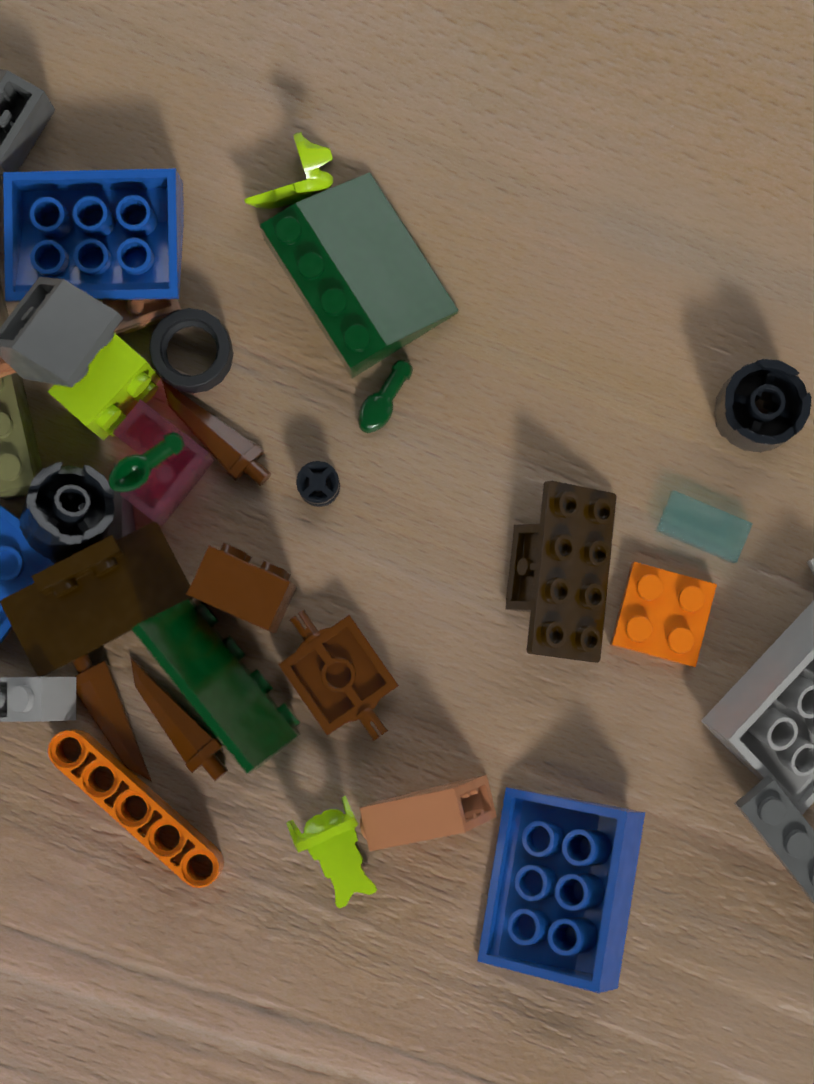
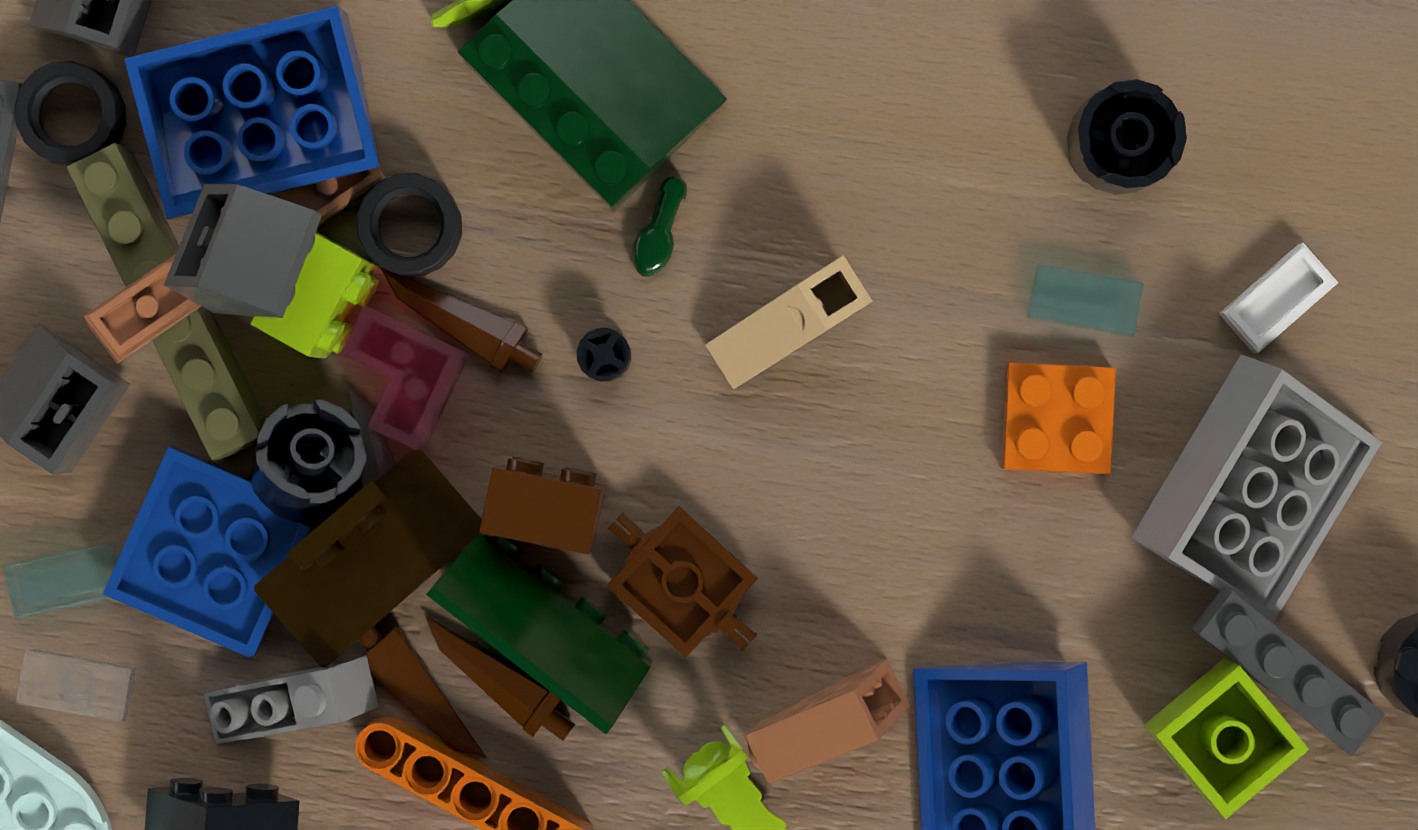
camera: 15 degrees left, 5 degrees up
(135, 469) = (380, 393): dark green piece -> none
(469, 489) = (788, 322): none -> tan slope
(564, 571) = (927, 395): dark brown bracket -> none
(744, 898) = (1226, 737): none -> lime brick

